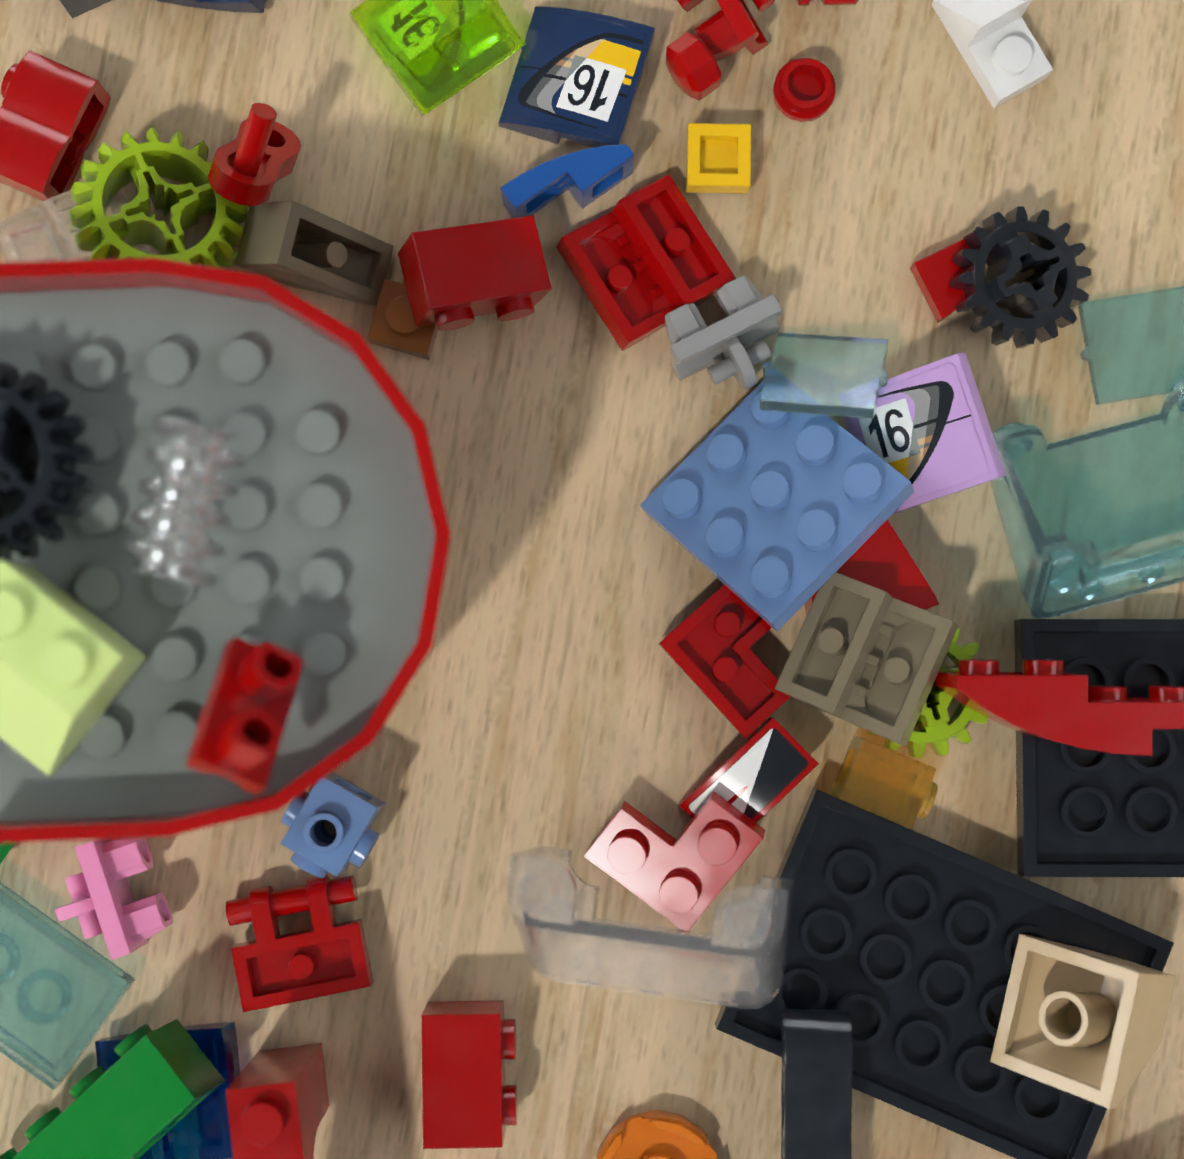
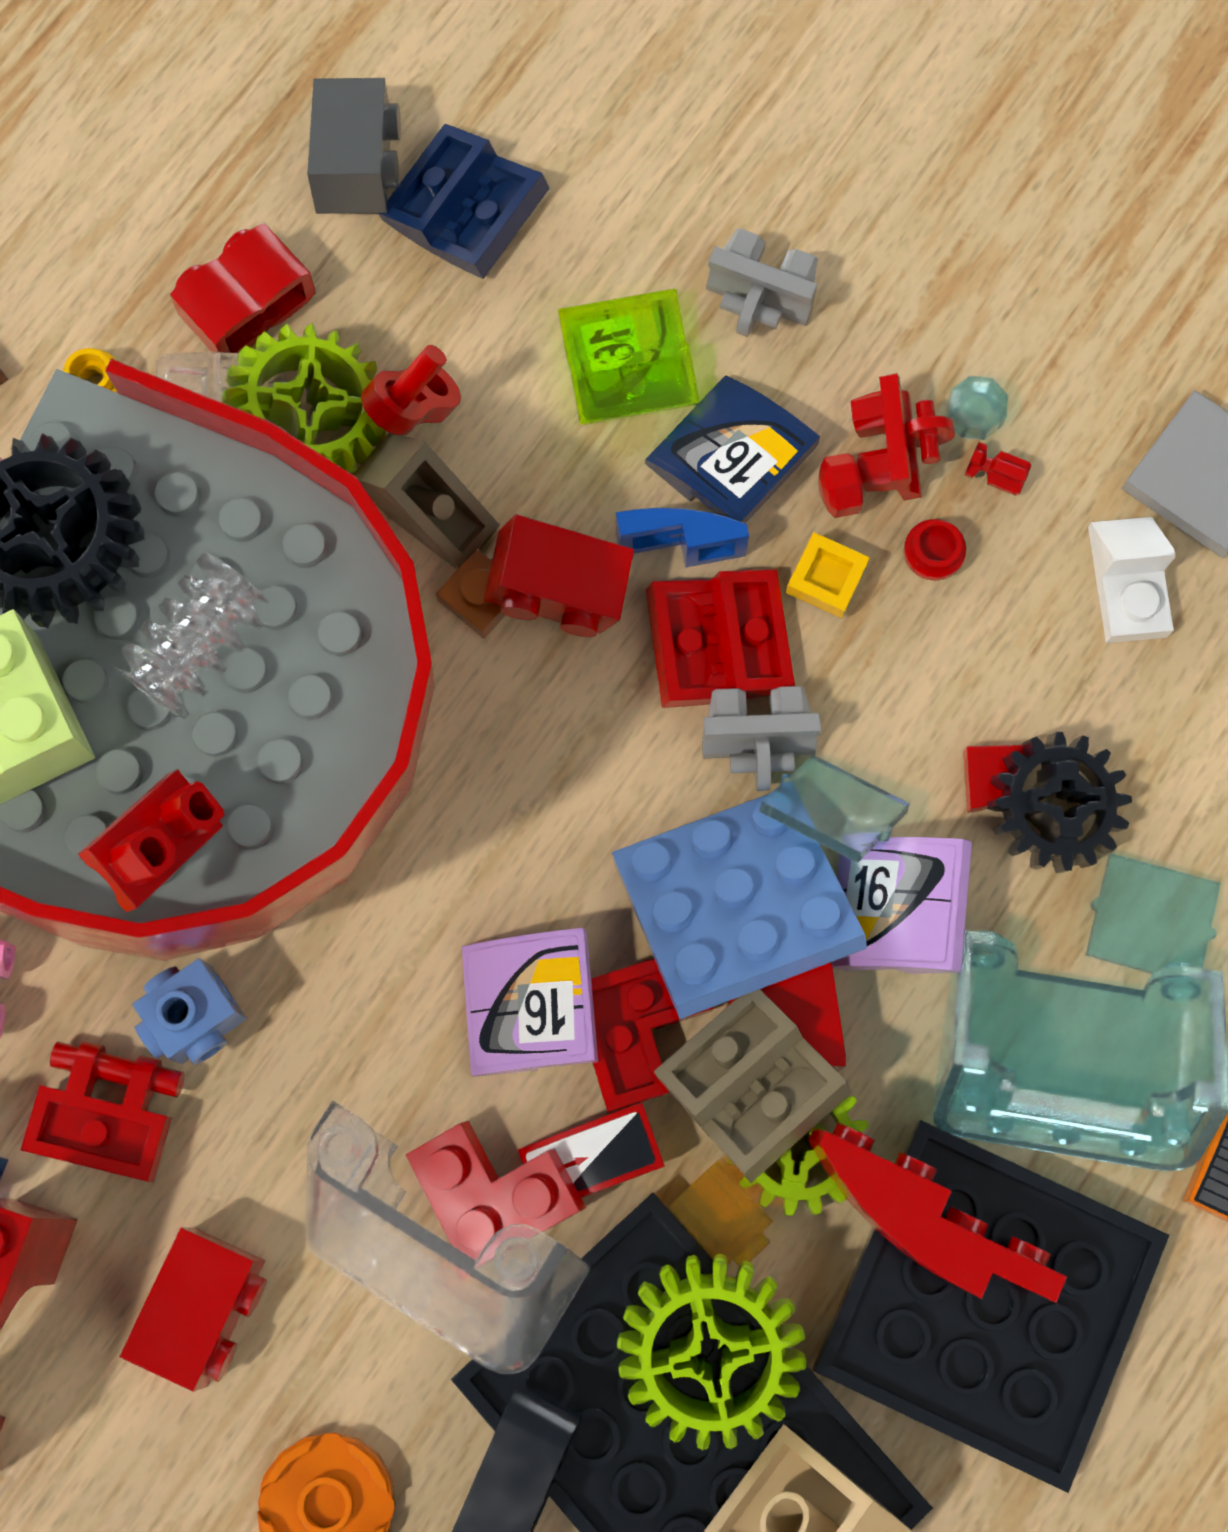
camera: 30 degrees right, 10 degrees down
(631, 674) = (529, 1002): none -> slope
(959, 890) = (723, 1411): none -> lime gear

